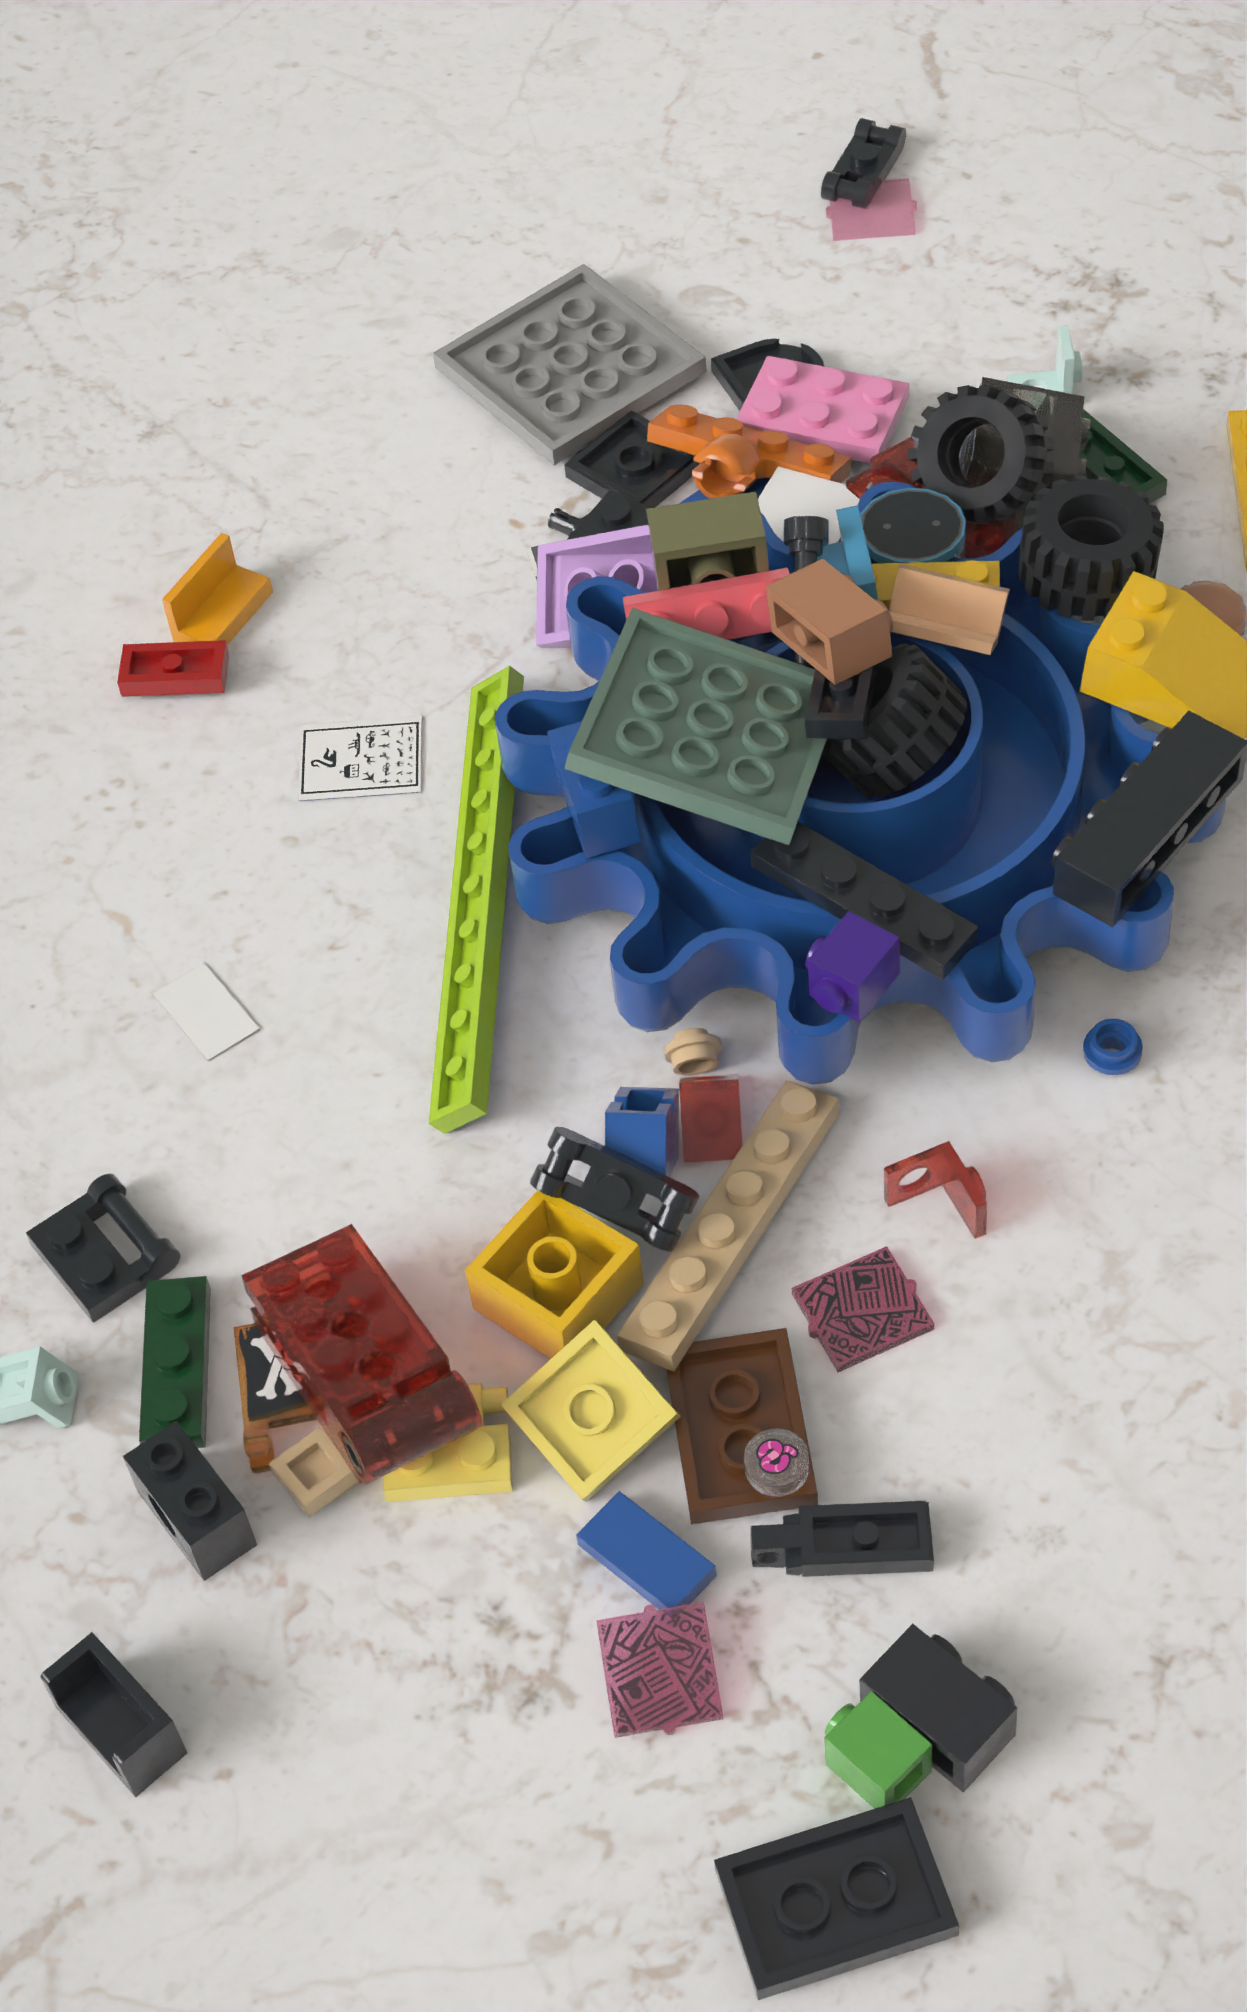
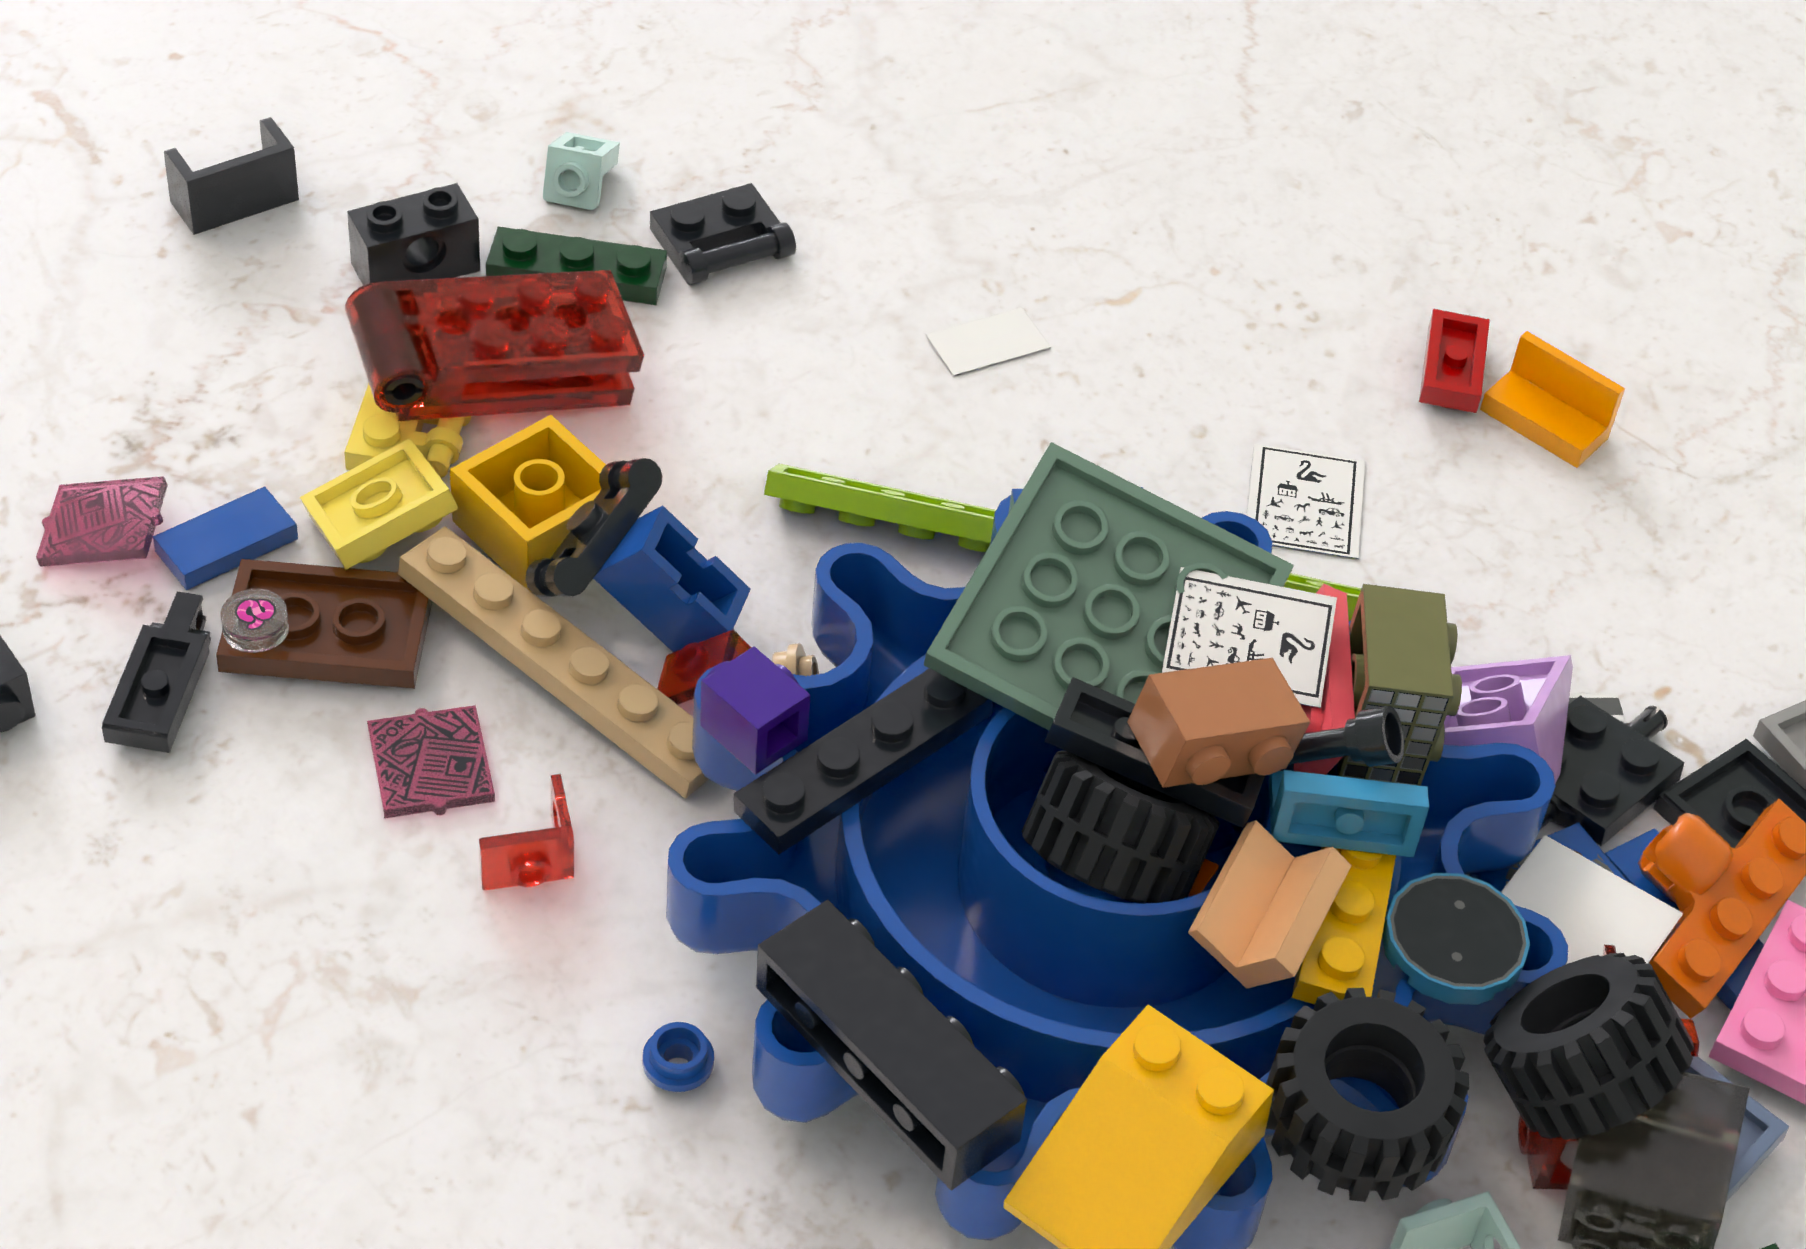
camera: 90 degrees right, 5 degrees down
(710, 632) = (1249, 621): none -> white sticker

